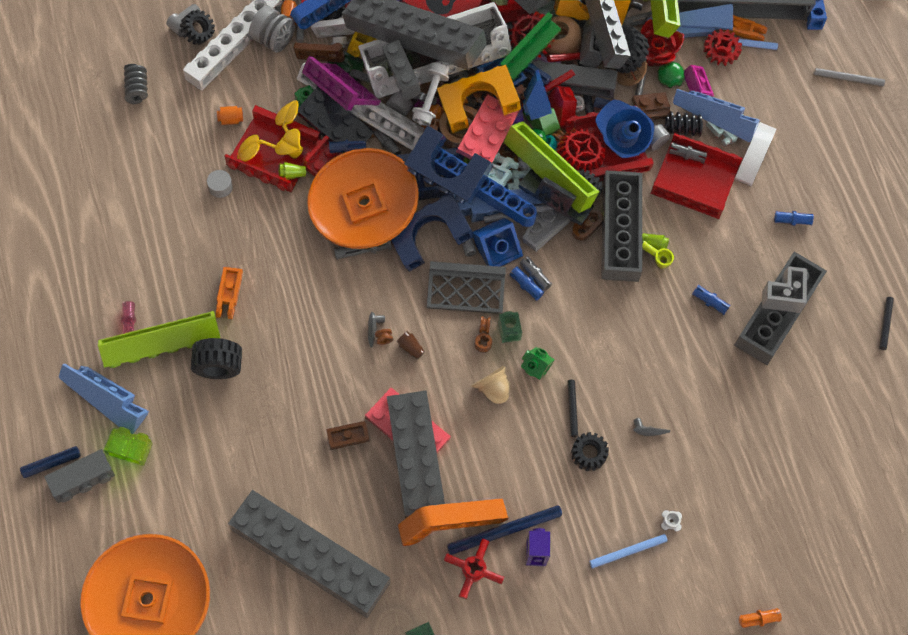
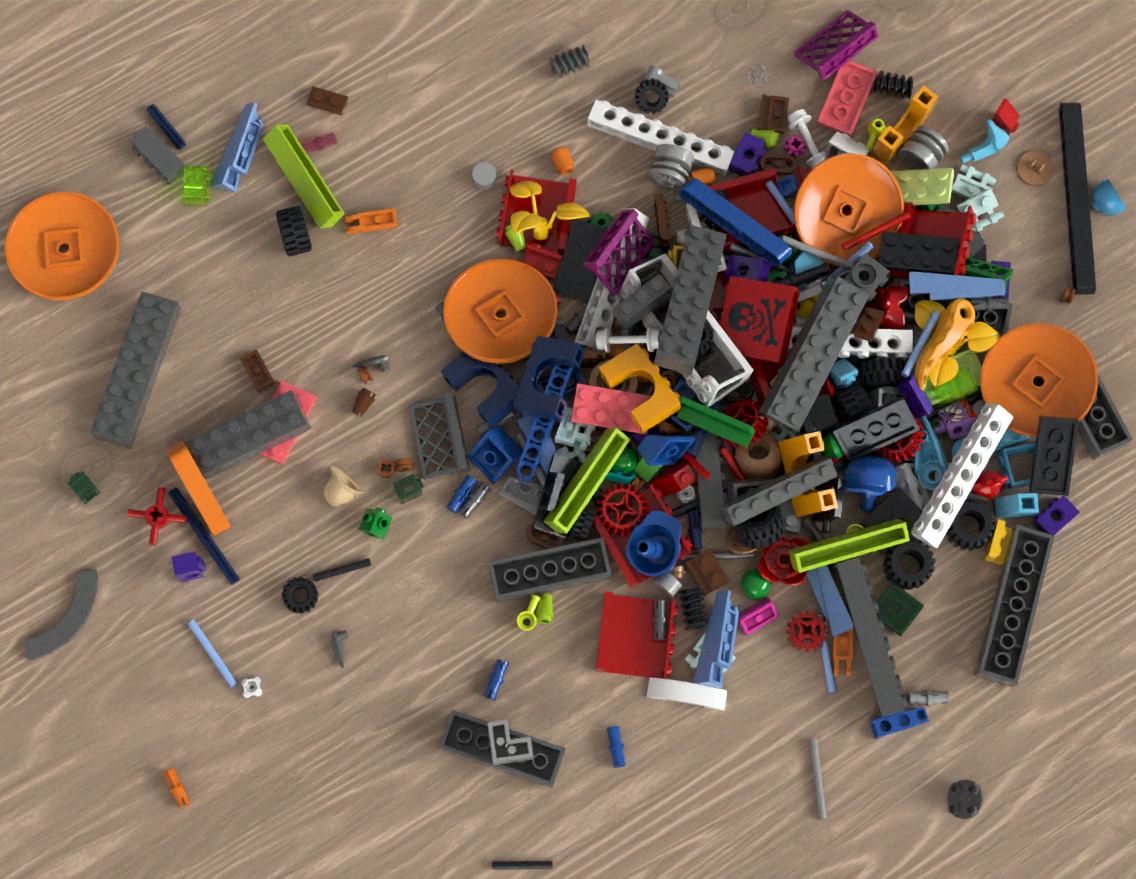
camera: 75 degrees right, 10 degrees up
(85, 301) = (327, 100): none -> reddish brown plate
(345, 146) = (555, 279): dark blue axle -> none

